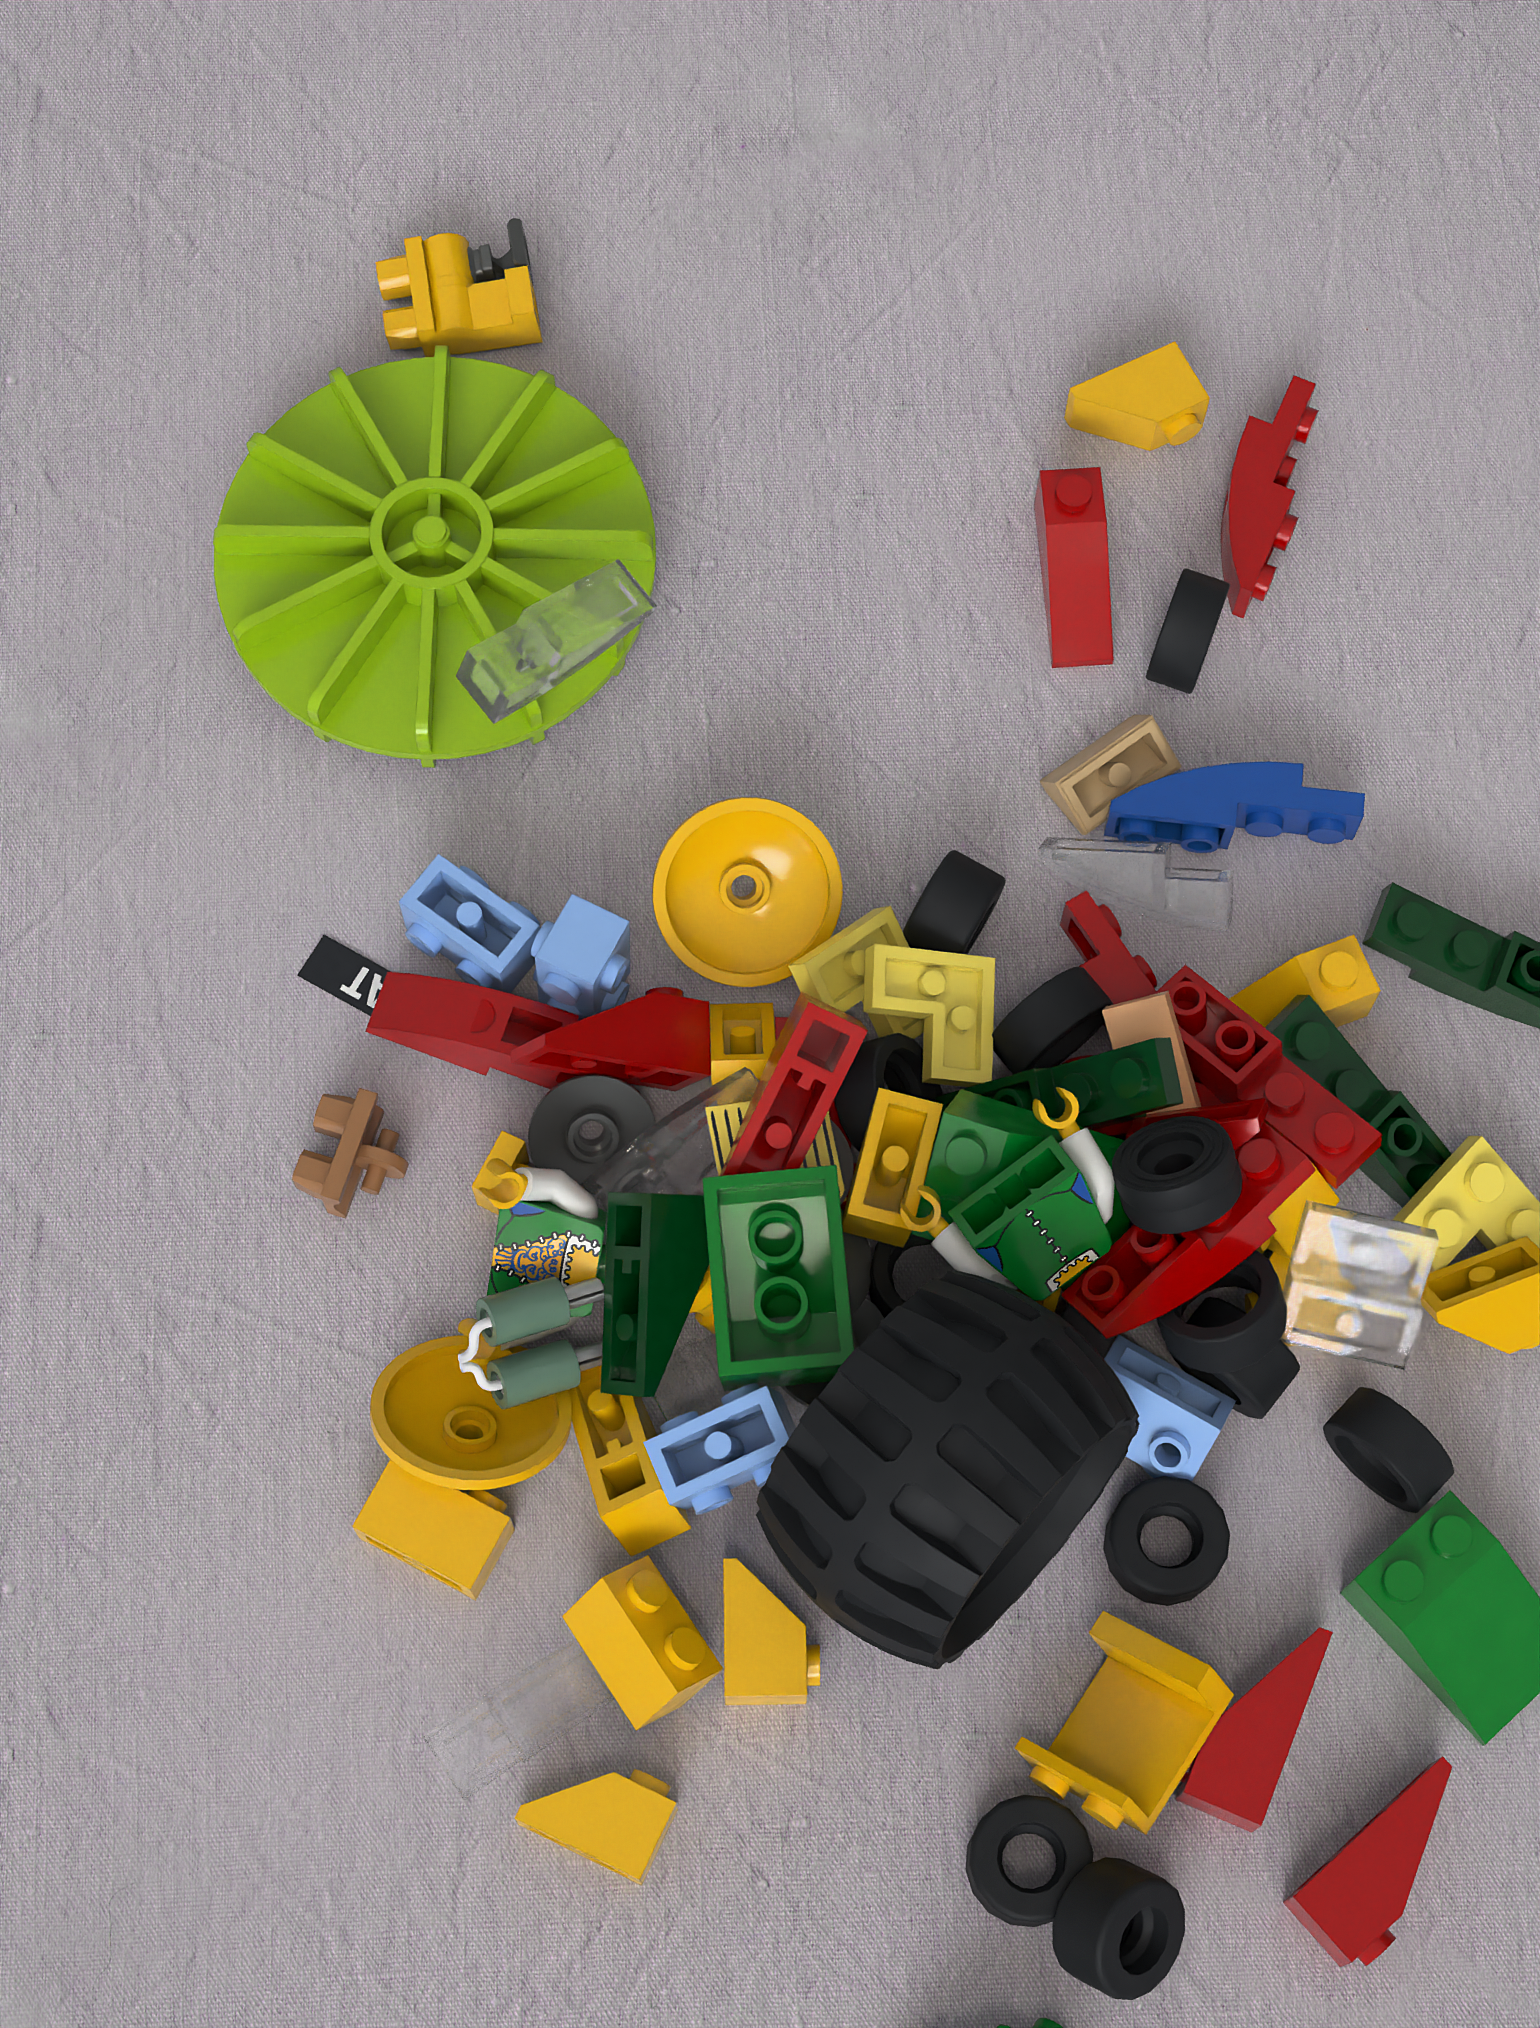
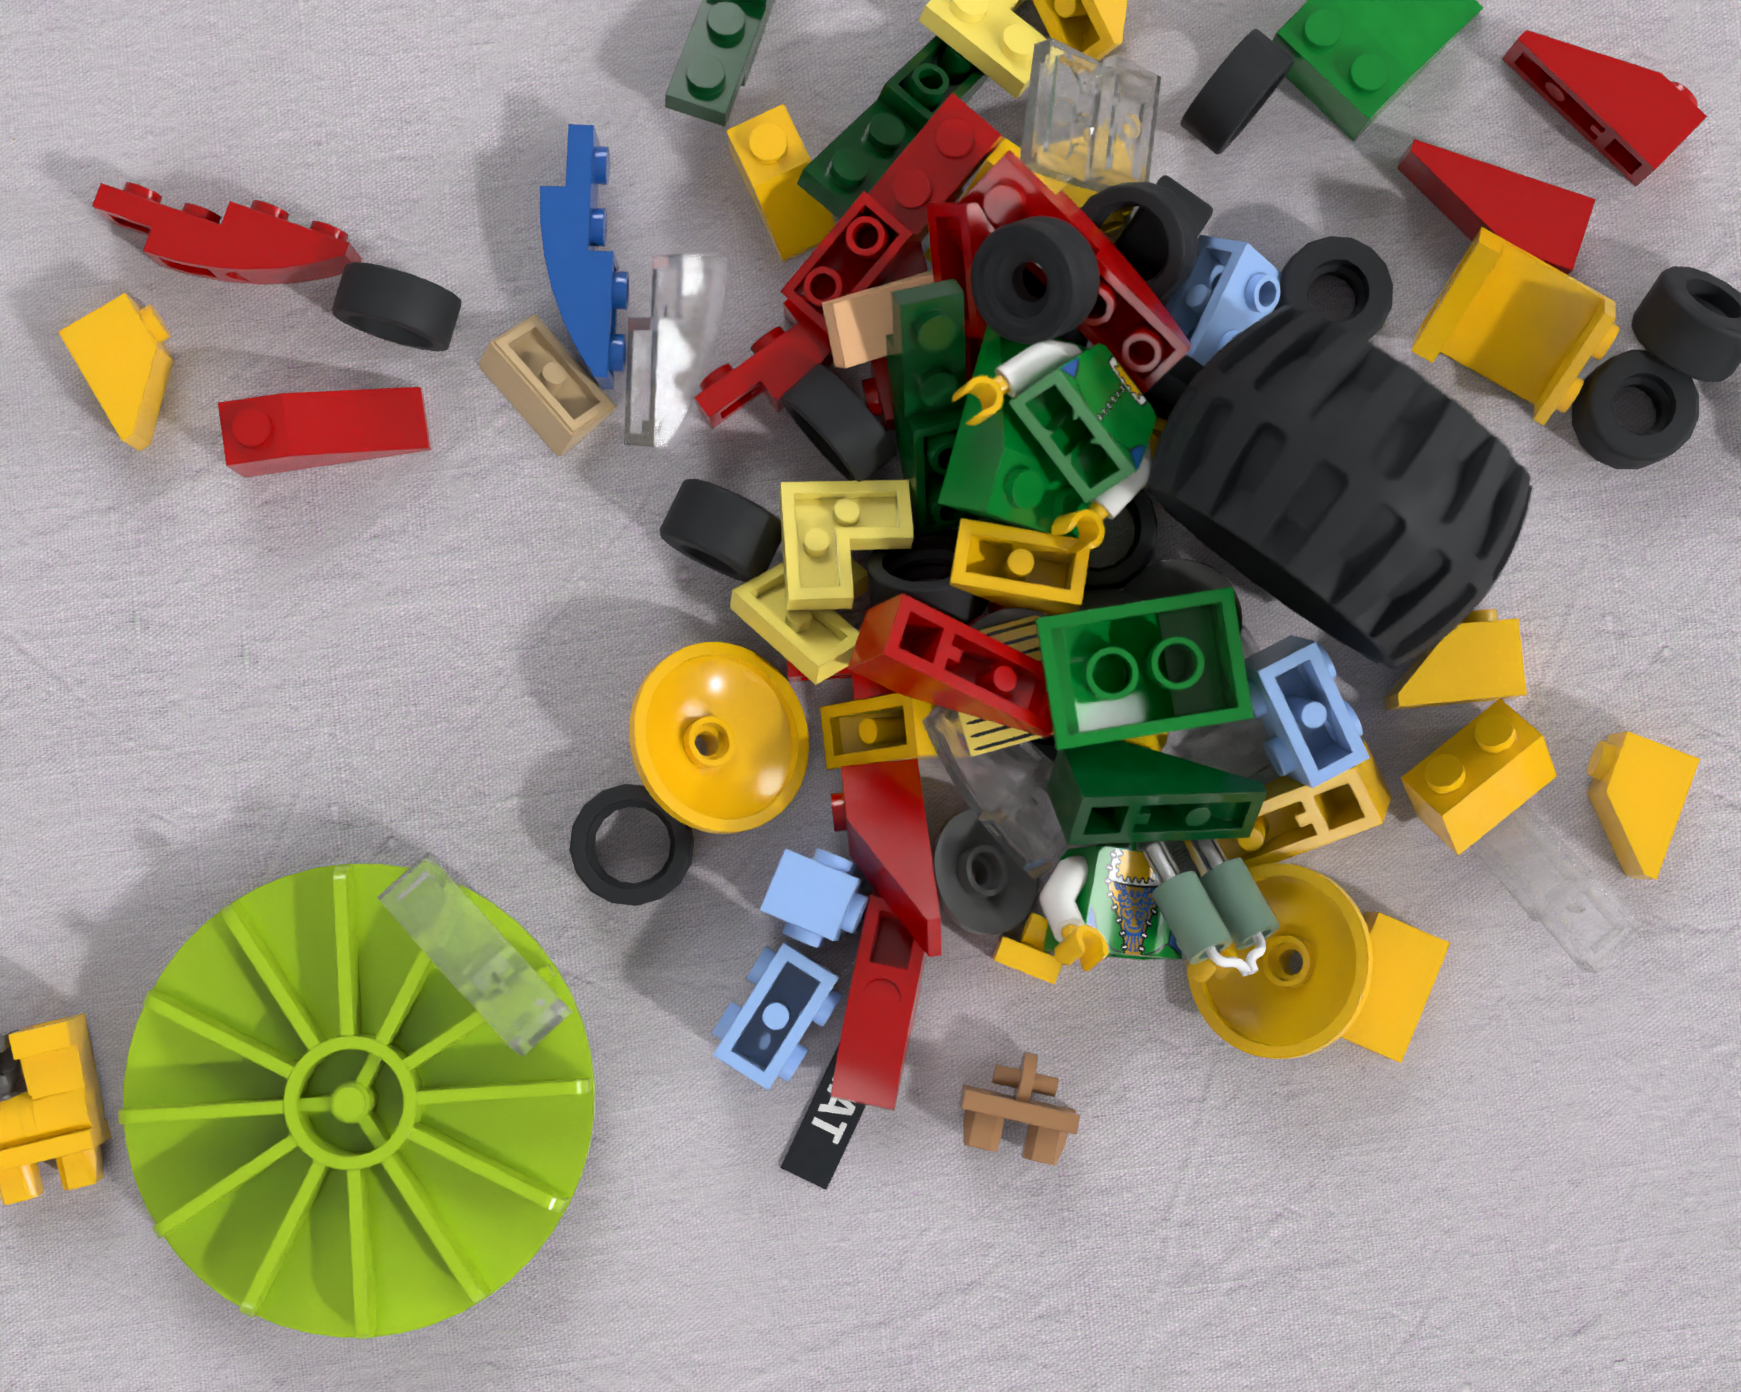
camera: 100 degrees left, 15 degrees up
(622, 778) = (595, 877): none -> black tyre

